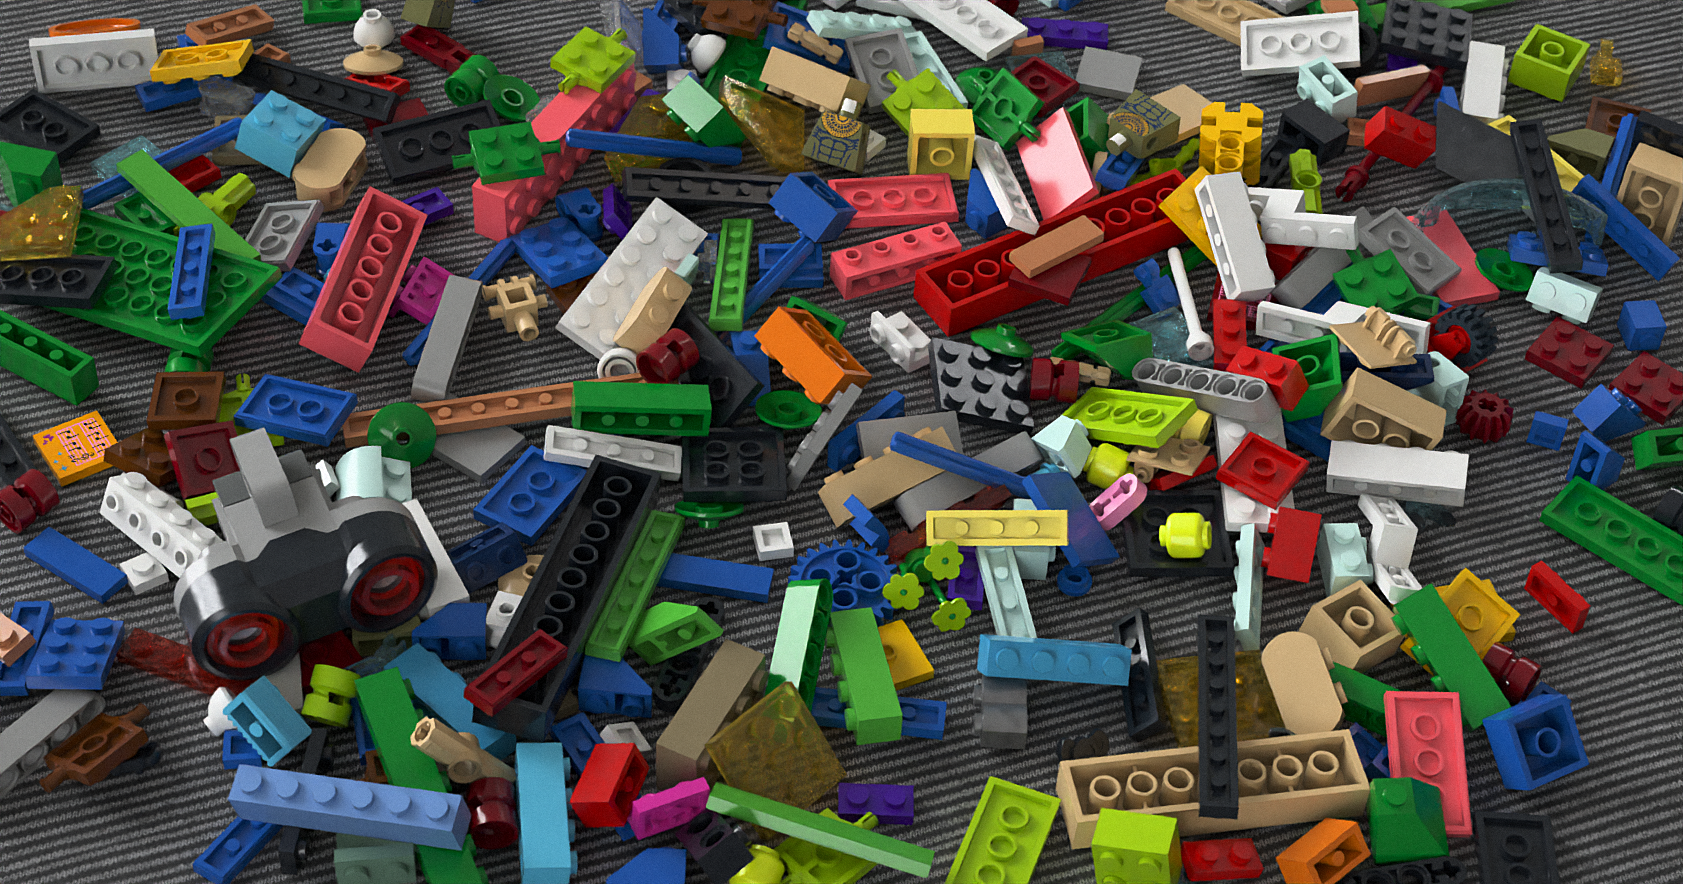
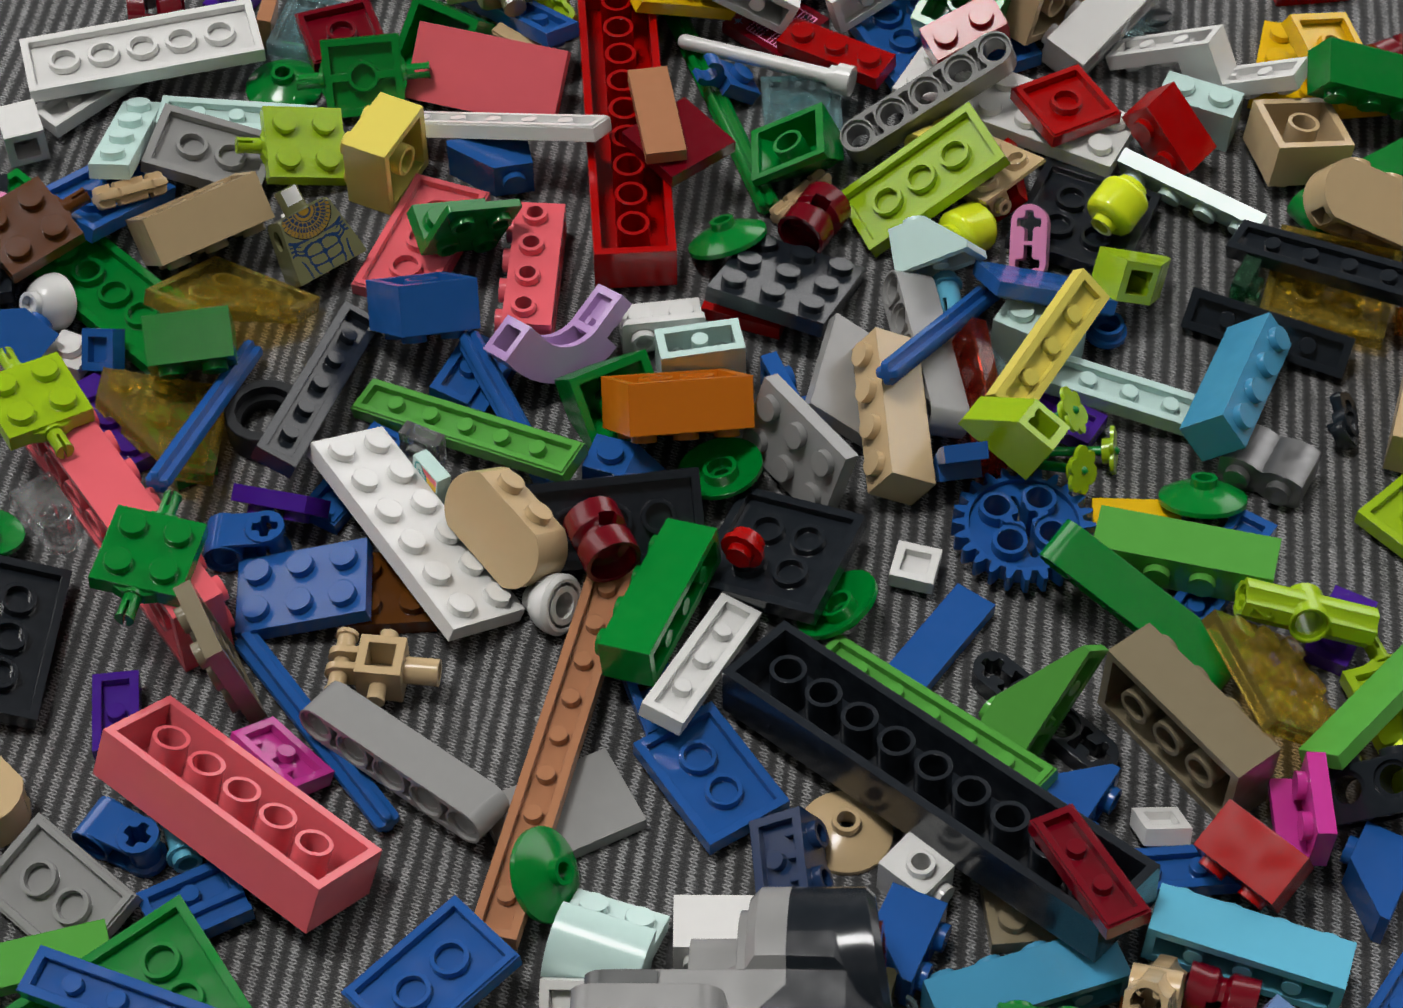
camera: 60 degrees left, 5 degrees up
(467, 220) = (216, 653): none -> dark tan plate
(713, 434) = (743, 547): none -> red plate
(817, 283) = (566, 350): none -> lavender arch
(849, 755) = (1306, 612): none -> lime piece
(881, 359) = (701, 346): none -> light aqua brick
(901, 536) = (1016, 430): none -> lime slope
(903, 201) = (461, 225): none -> green bracket
(941, 680) = (1202, 497): none -> green dish
(1122, 569) = (1130, 275): none -> lime slope
(1177, 643) = (1247, 283): none -> clear green plate

